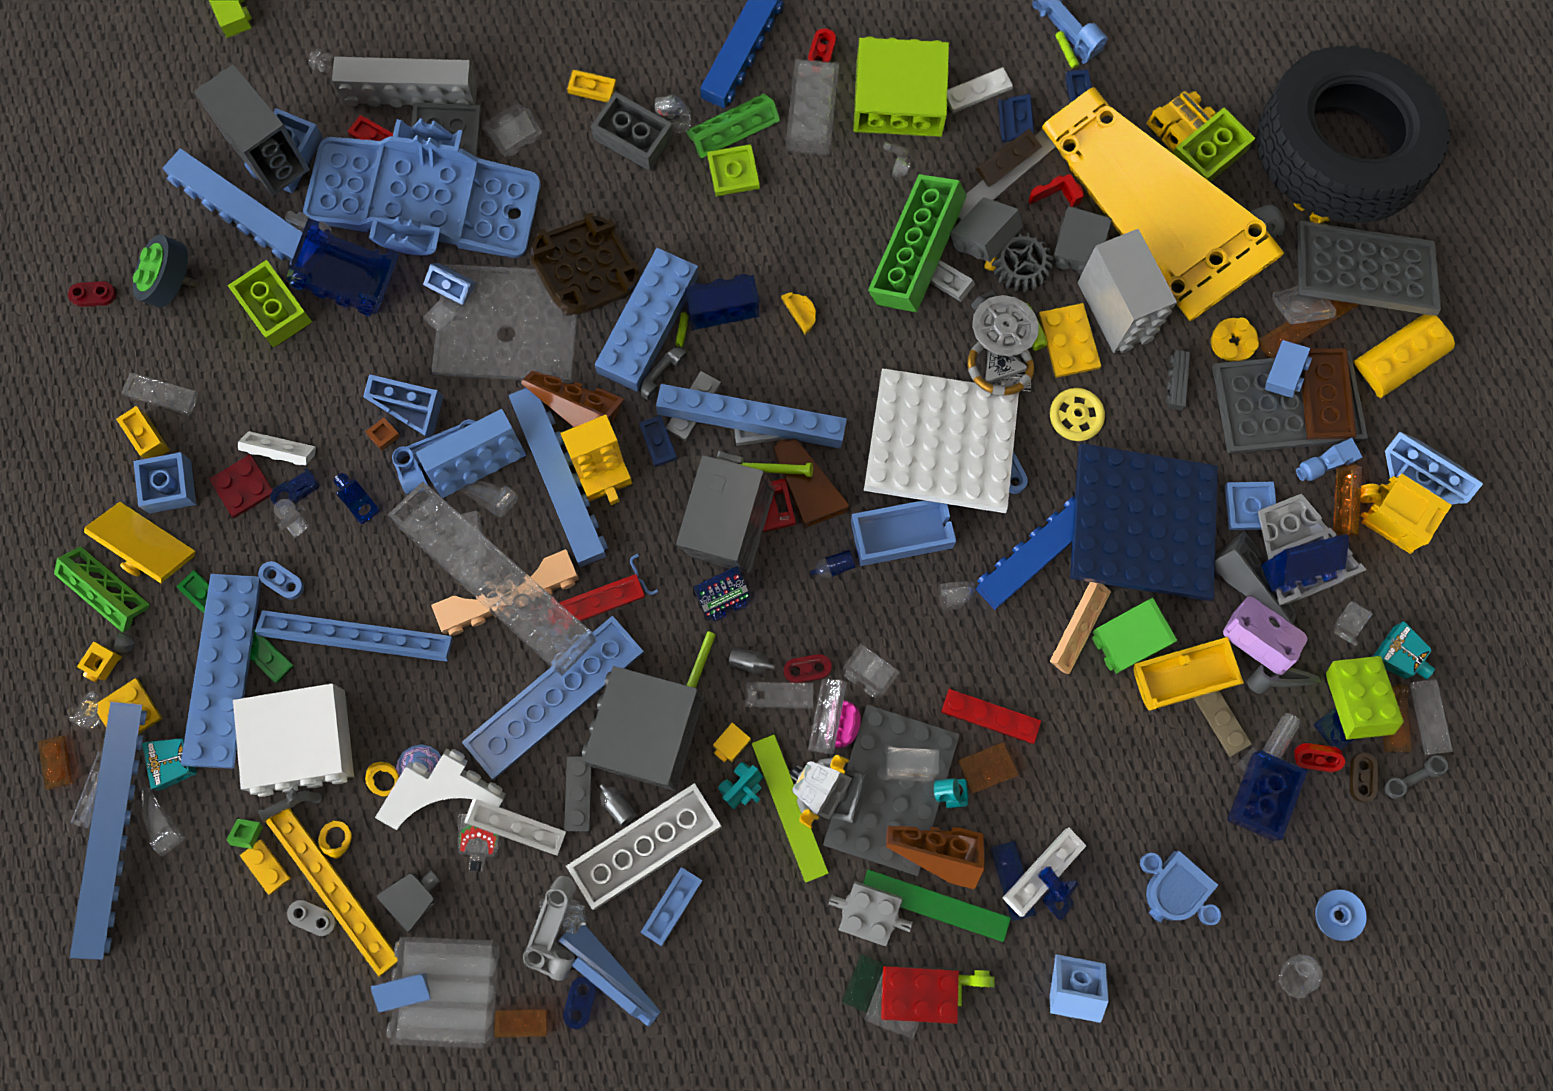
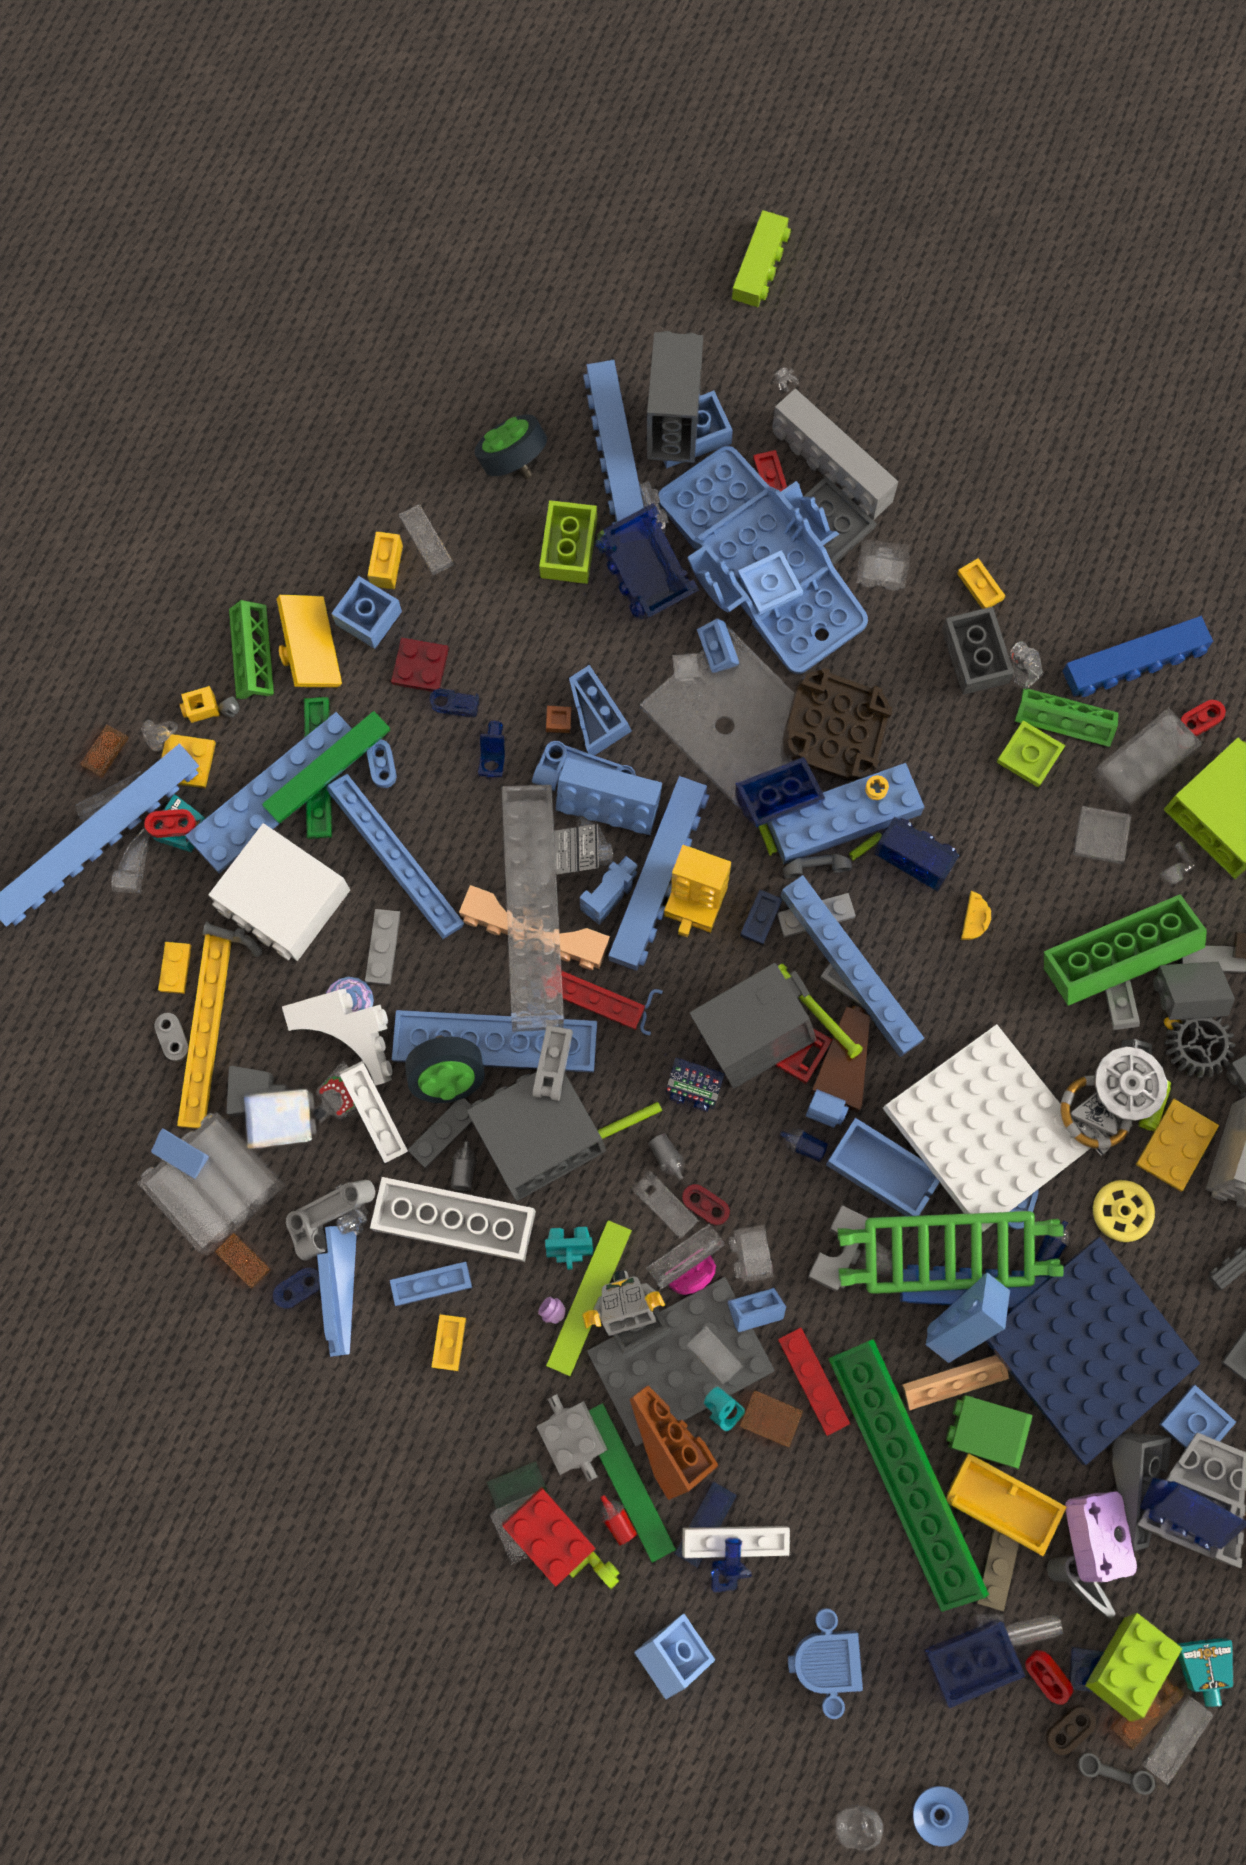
camera: 50 degrees right, 0 degrees up
(90, 294) = (447, 416): dark red plate -> none
(160, 765) = (171, 823): none -> red plate
(242, 619) = (326, 767): none -> green tile
(244, 833) = (183, 929): bright green plate -> none
(276, 448) = (471, 659): white plate -> none
(291, 517) = (431, 723): clear hips -> none
(325, 848) = (228, 995): yellow piece -> none
(375, 767) = (315, 969): yellow piece -> none
(408, 707) = (382, 947): none -> light grey plate
(445, 205) = (770, 582): none -> light blue plate
(450, 896) = (279, 1117): none -> clear slope
(484, 509) = (576, 849): none -> light grey sticker
(534, 508) = (611, 890): none -> medium blue hips
(538, 748) = (444, 1069): none -> black wheel
(571, 400) = (724, 827): dark orange wedge -> none
(589, 344) = (778, 792): none -> clear blue slope
(608, 383) = (771, 847): none -> lime piece
(611, 669) = (552, 1062): none -> light grey plate
(653, 287) = (882, 782): none -> yellow bush
(723, 934) = (448, 1342): none -> yellow plate
(731, 743) = (591, 1205): yellow brick -> none
(772, 841) = (552, 1310): none -> lavender plate
(826, 526) = (827, 1109): none -> medium blue brick
(830, 182) = (1102, 835): none -> clear plate
(909, 705) = (756, 1309): none -> medium blue slope
(919, 591) = (826, 1268): none -> light grey arch
(937, 583) = (868, 1236): none -> bright green bar
(953, 938) = (617, 1520): none -> red piece
(1053, 575) = (970, 1319): none -> medium blue wedge
(1055, 478) = (1053, 1245): none -> clear blue piece
(1110, 716) = (908, 1476): none -> green plate
(1351, 622) = (1186, 1598): clear bracket -> none

